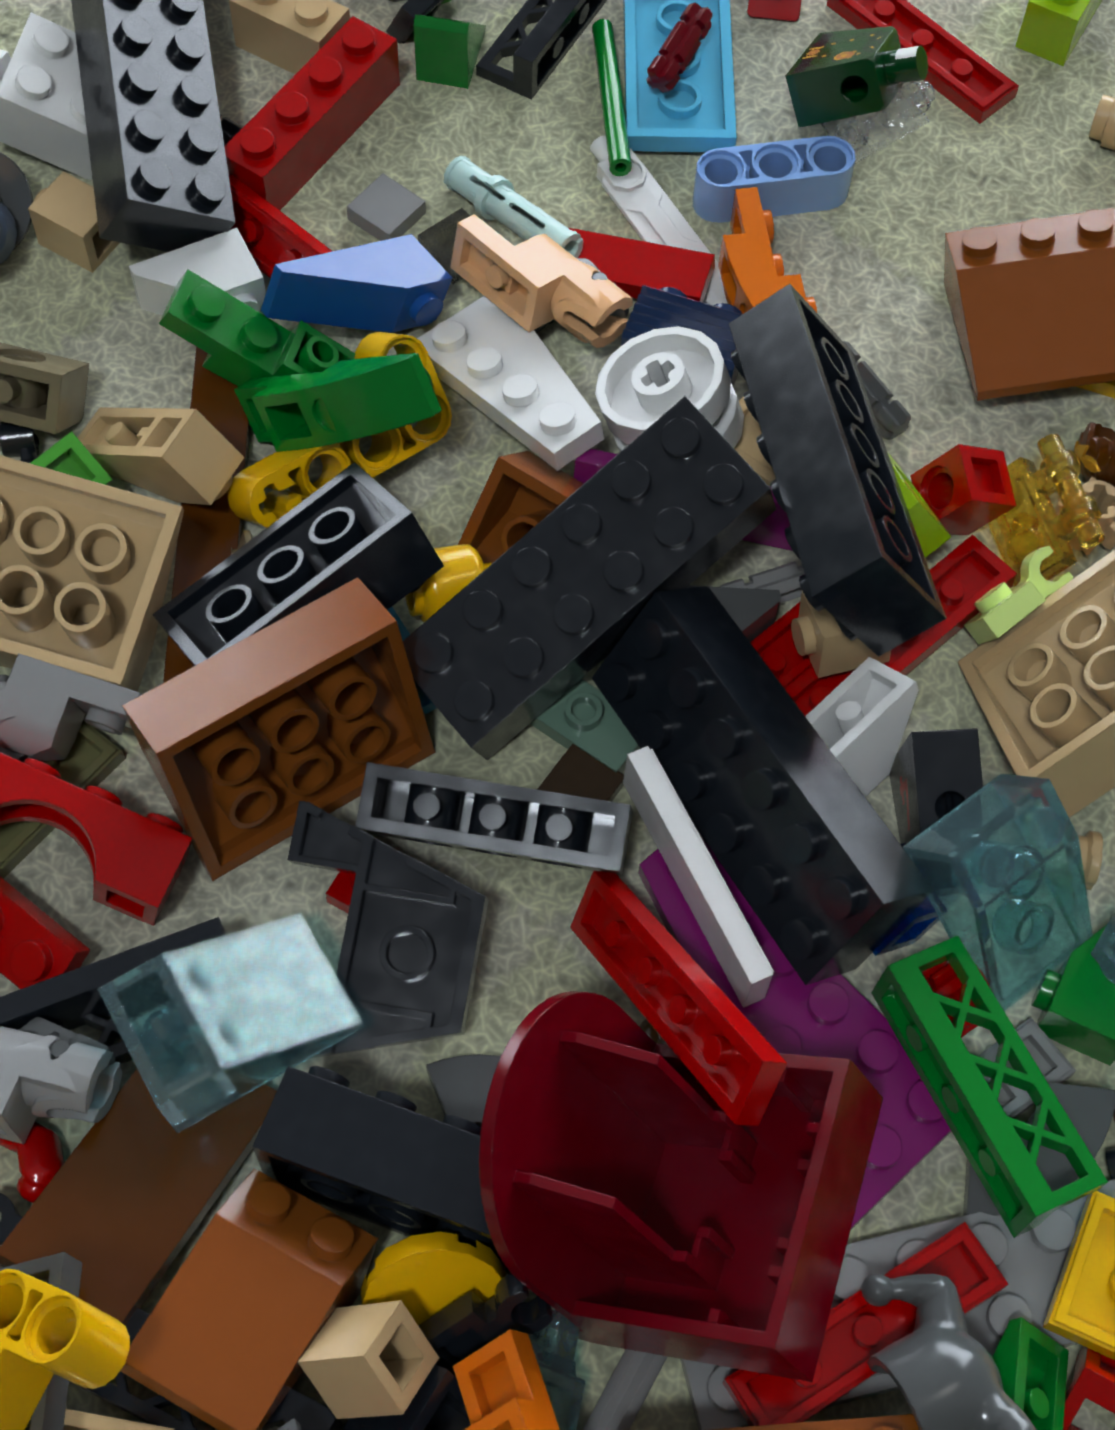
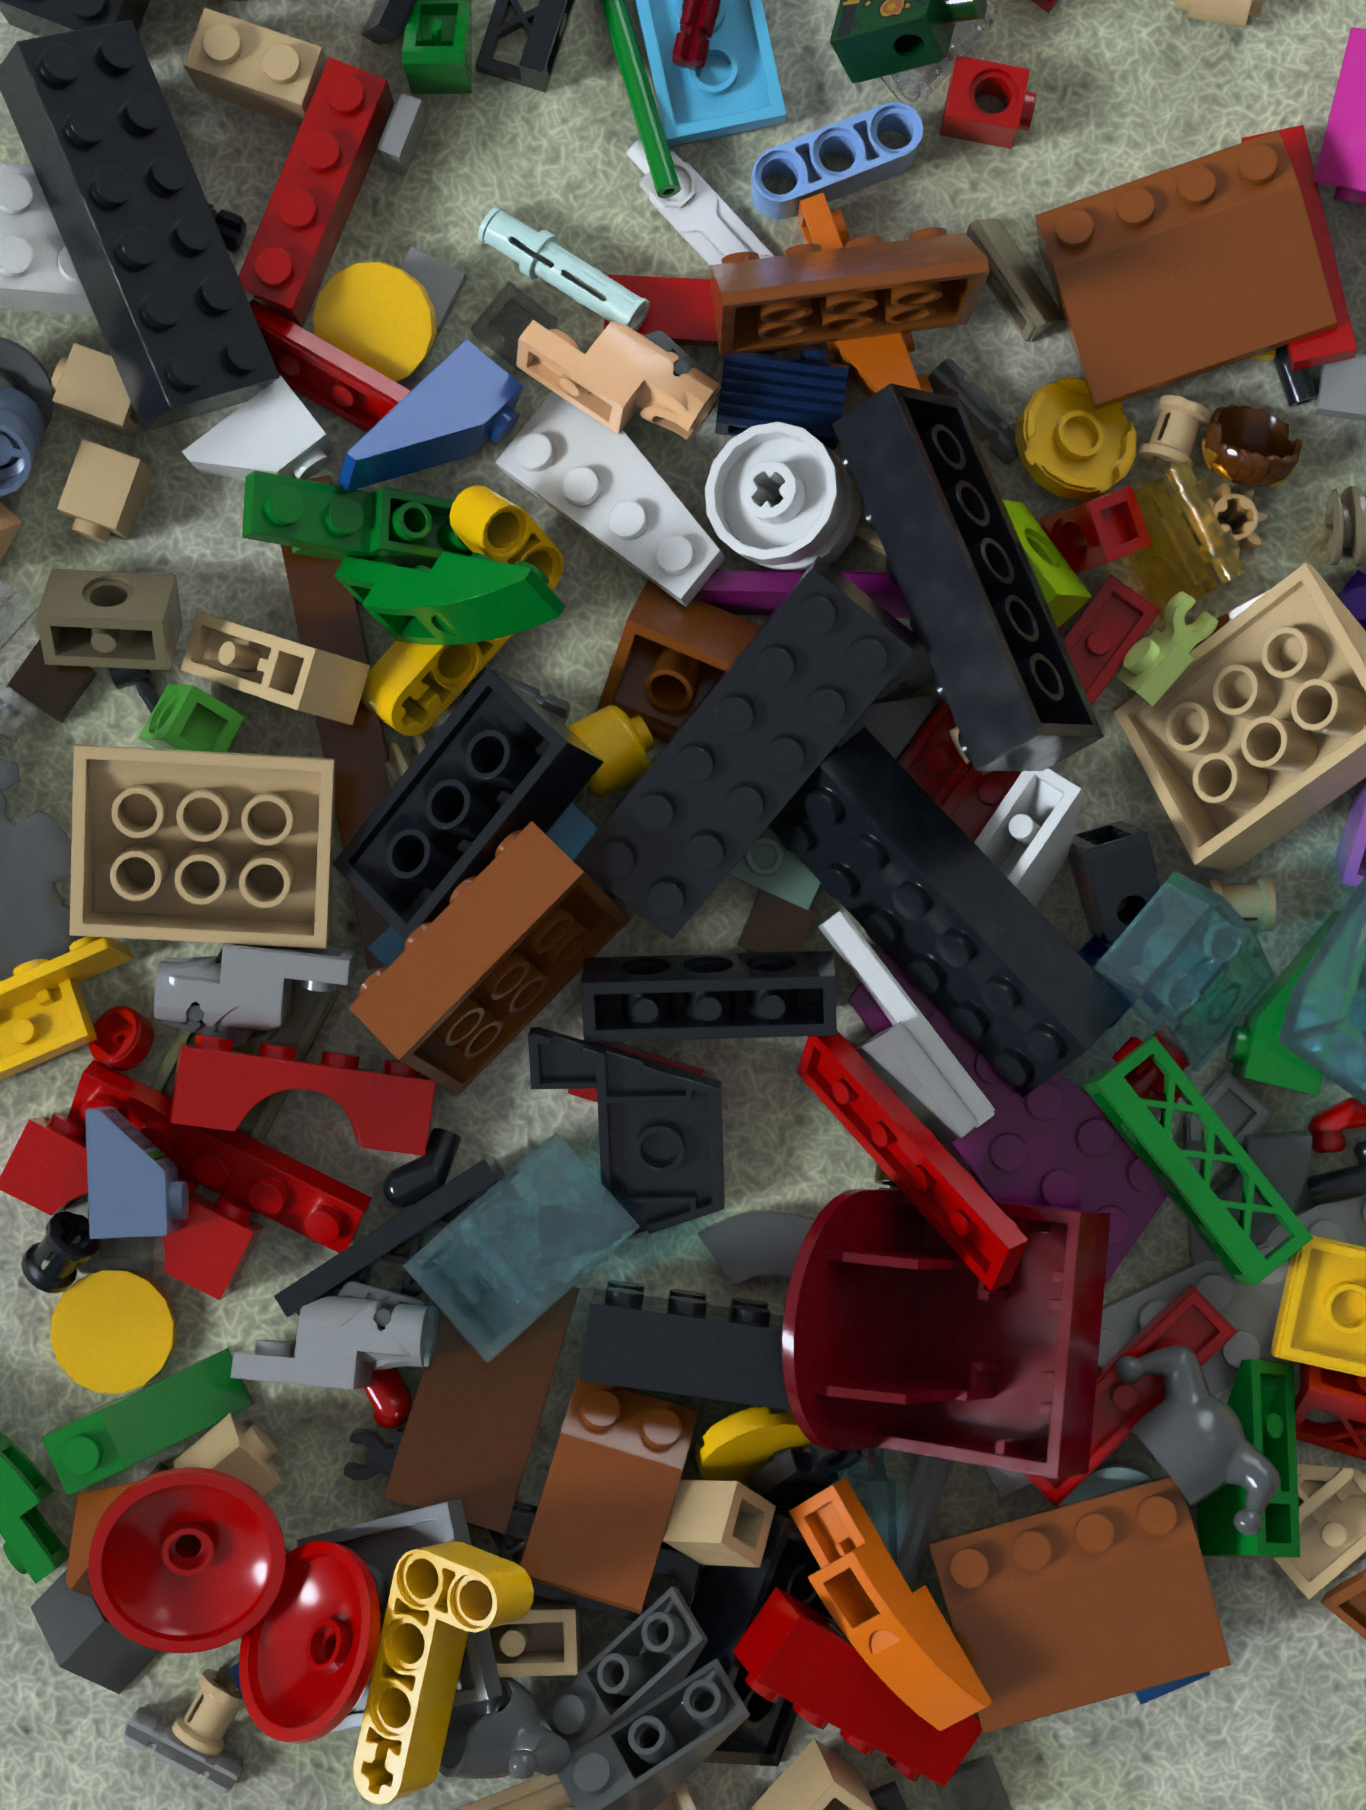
camera: 10 degrees left, 25 degrees up
(49, 293) = (104, 492): none -> tan brick
(177, 918) = (425, 1174): none -> black arm
(338, 206) = (377, 318): none -> yellow tile
(400, 93) = (402, 133): none -> light grey tile
(693, 917) = (918, 1082): none -> light grey tile
(763, 229) = (846, 291): none -> dark orange slope
(912, 296) = (1014, 280): none -> dark tan slope
(914, 162) = (980, 77): none -> red brick
(946, 413) = (1071, 444): none -> yellow tile
(1052, 417) = (1174, 432): none -> tan bush

